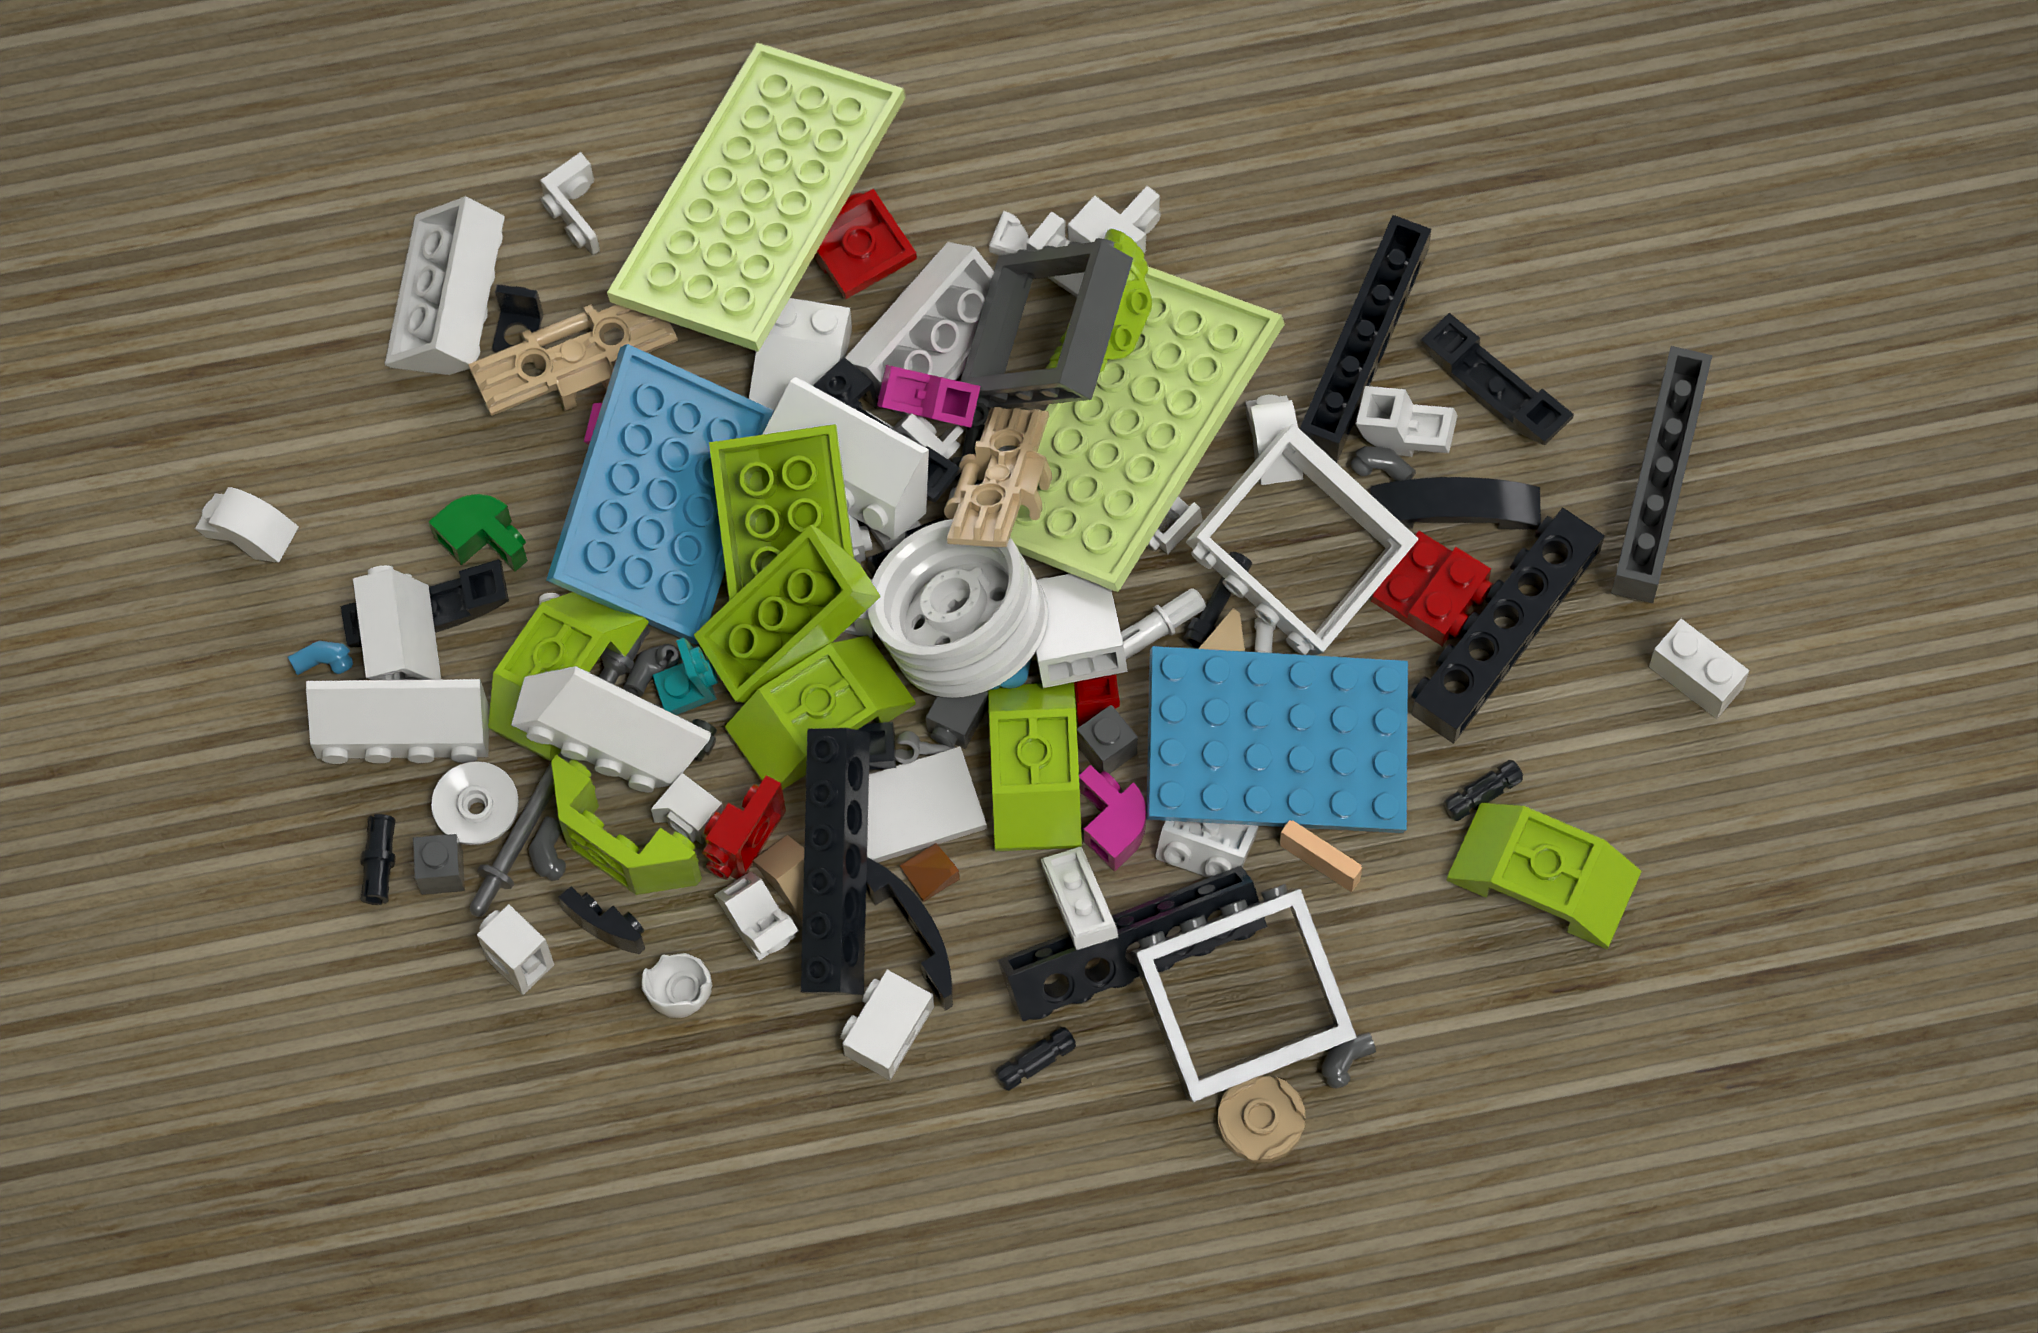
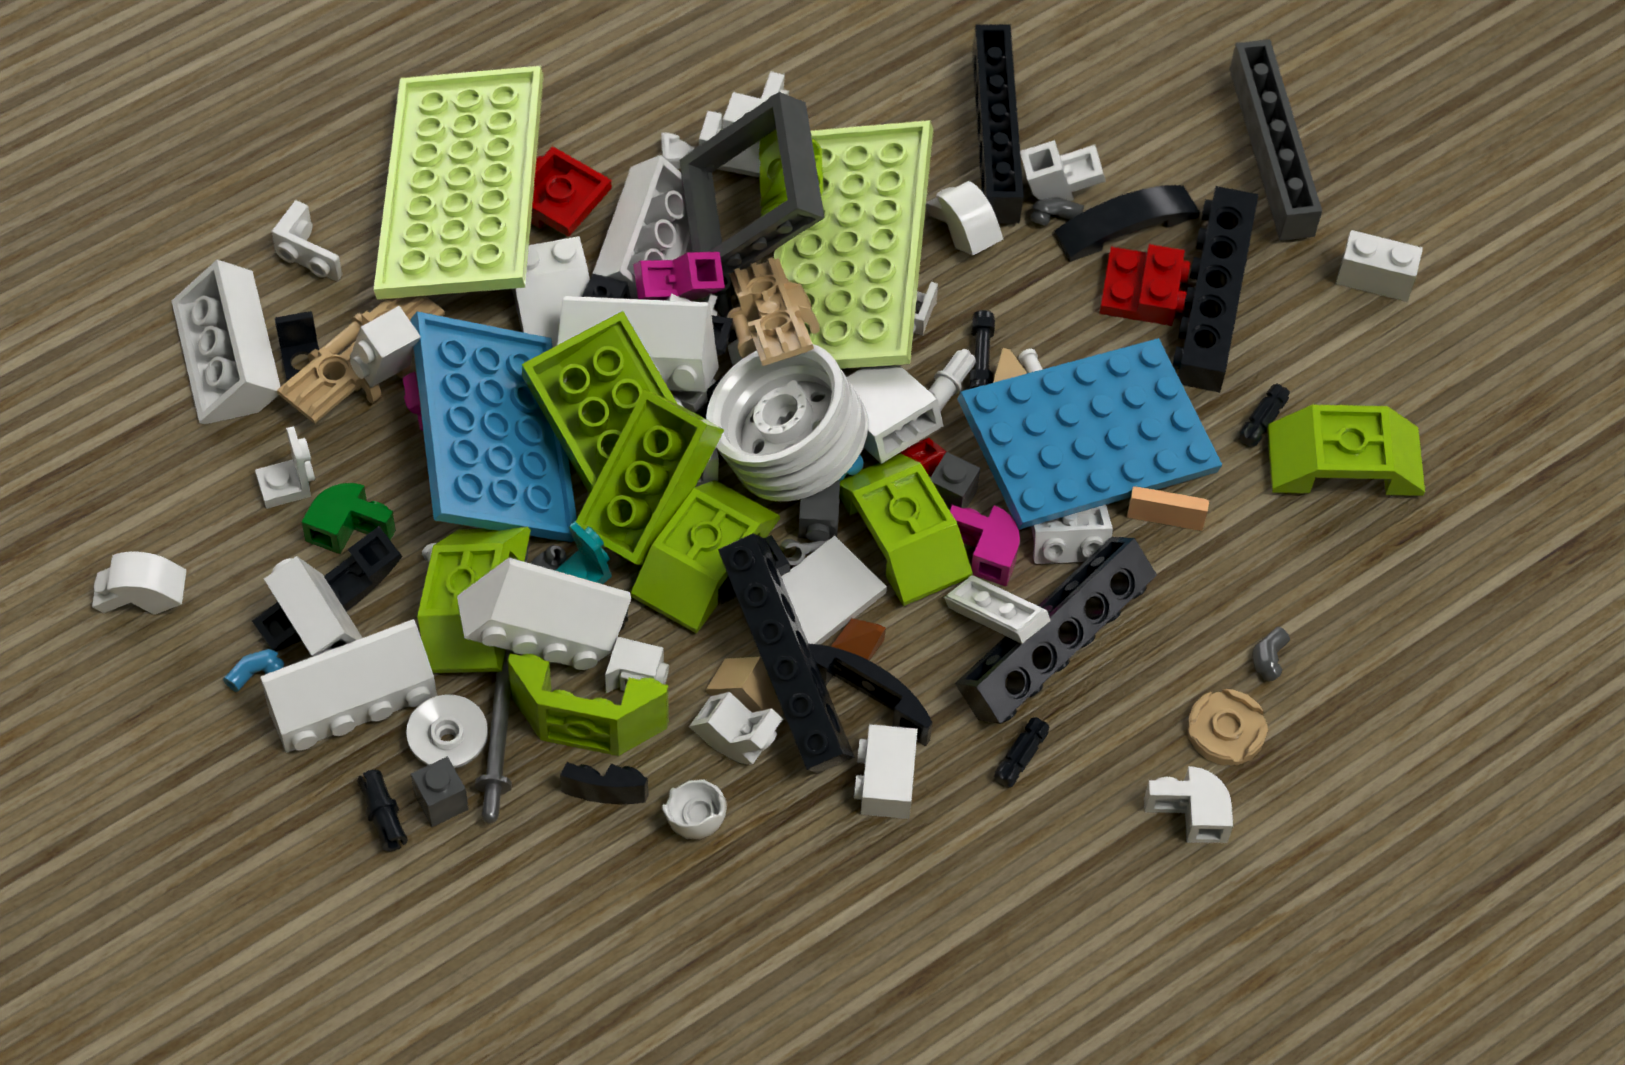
camera: 30 degrees left, 10 degrees down
(441, 463) = (288, 479): none -> white bracket
(515, 948) = (542, 830): white brick -> none
(543, 852) = (524, 750): dark grey arm -> none
(582, 366) = (384, 347): none -> white brick
(740, 835) = (690, 662): red plate -> none
(1188, 1185) = (1202, 800): none -> white brick
(1198, 930) = (1119, 672): window -> none
(1347, 494) = (1047, 233): white window -> none
(1492, 383) = (1108, 126): black slope -> none

